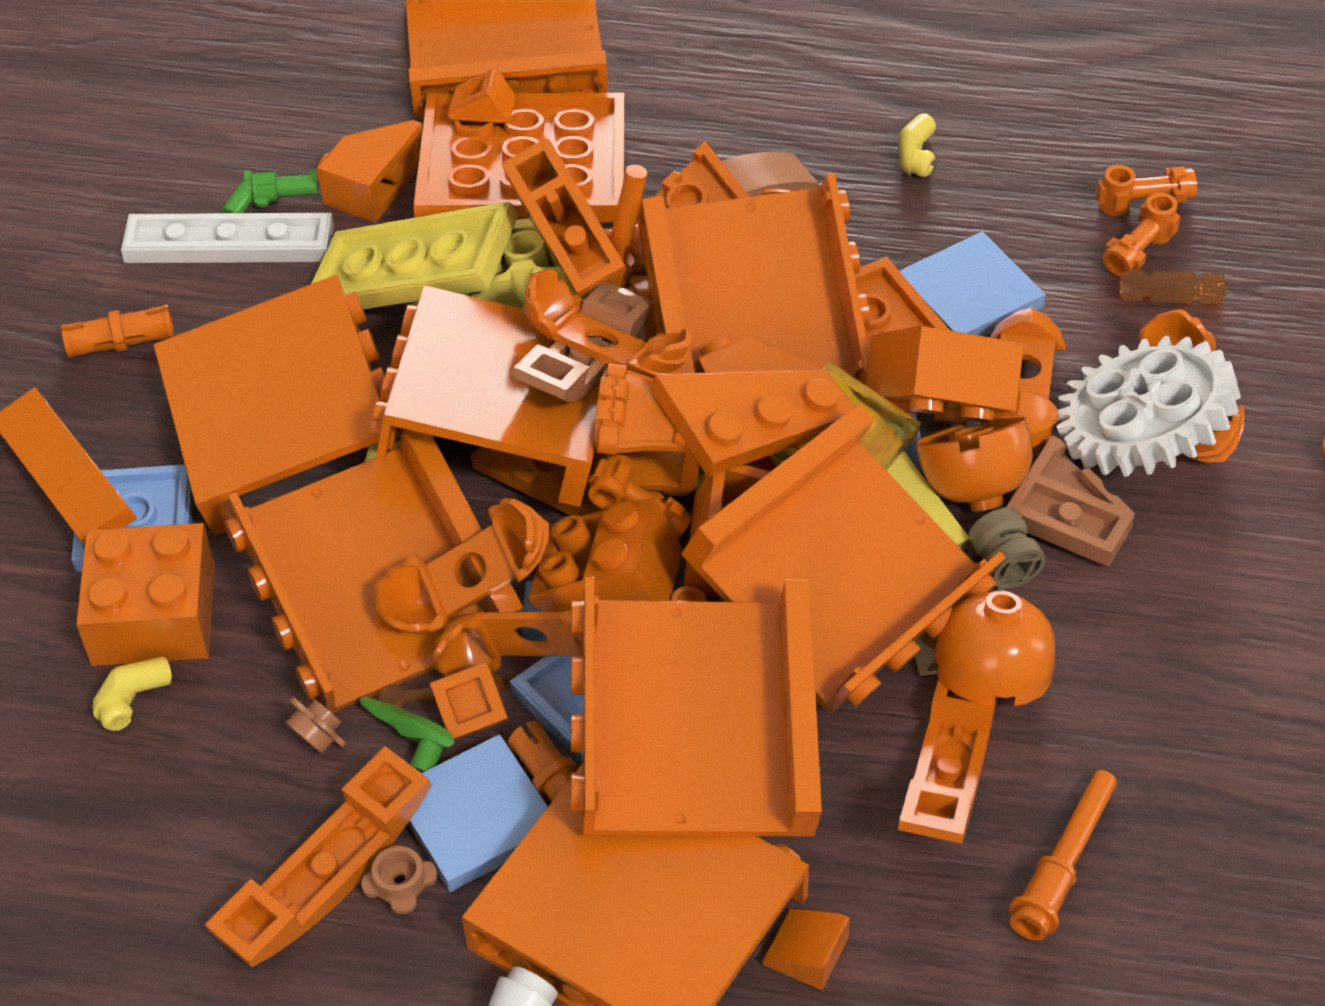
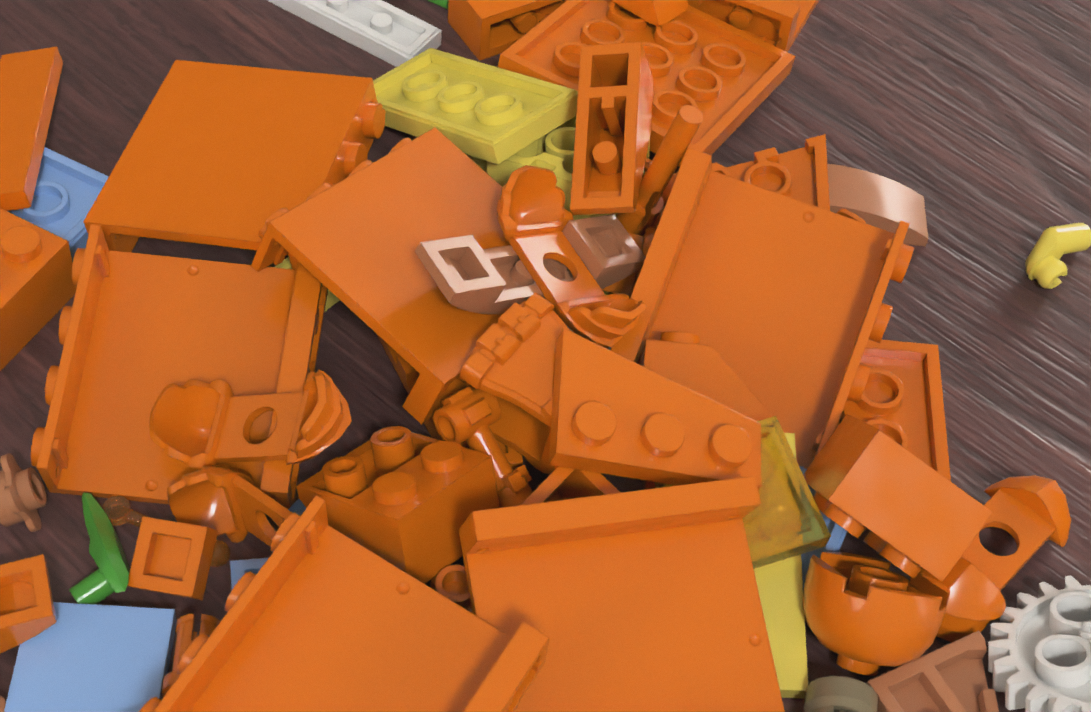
camera: 25 degrees right, 0 degrees up
(117, 331) = (172, 36): orange pin -> none
(973, 285) = (1009, 426): light blue tile -> none

